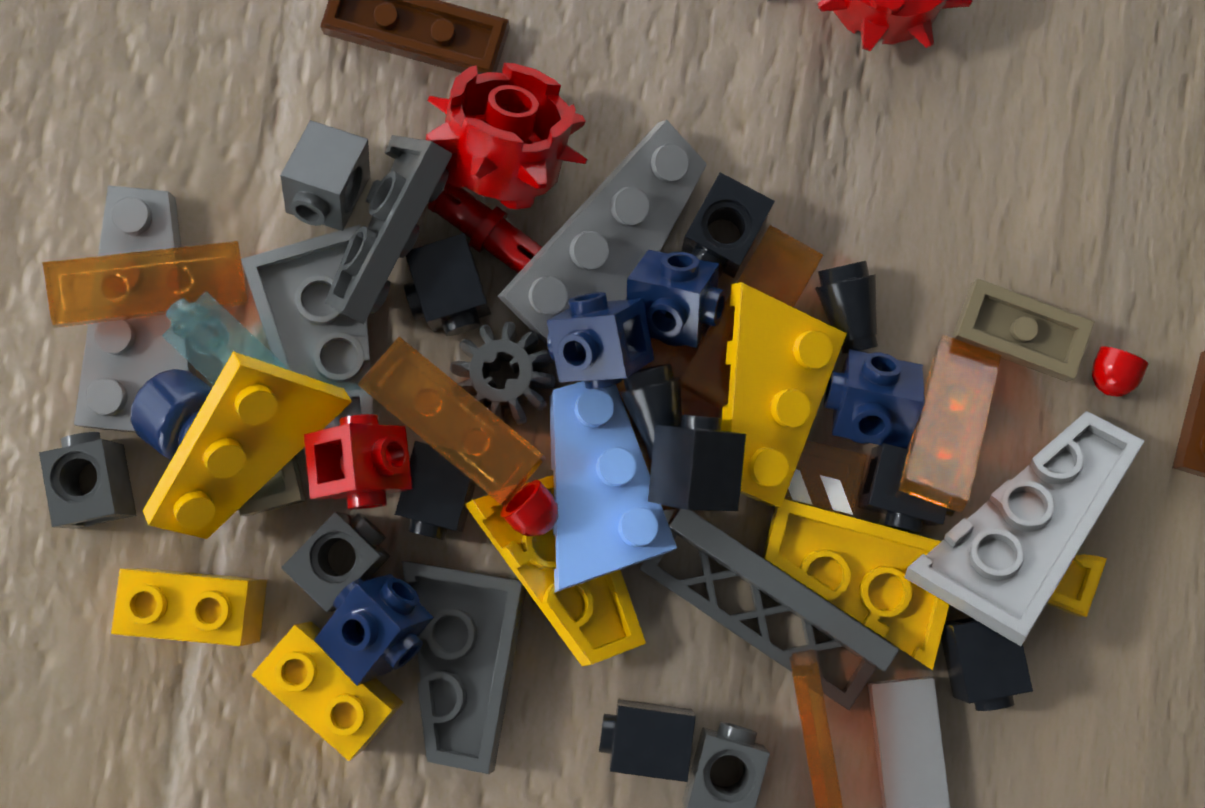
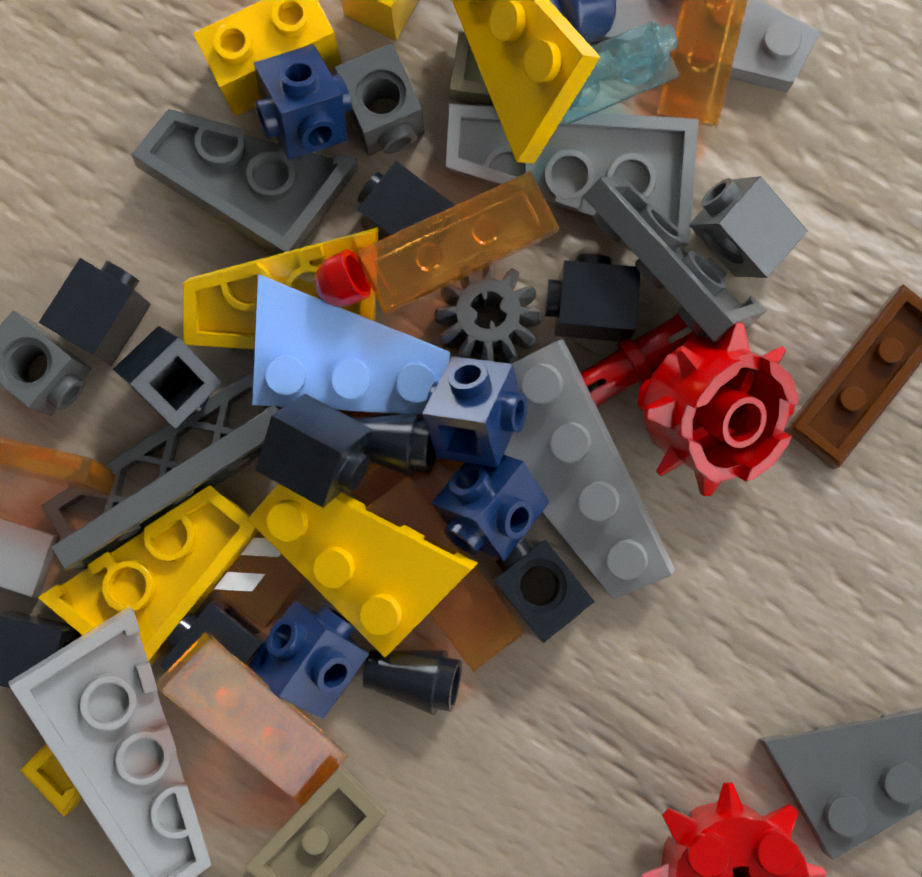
camera: 115 degrees right, 0 degrees up
(370, 457) = (454, 142): red brick -> none
(683, 639) = (168, 376): none -> black brick

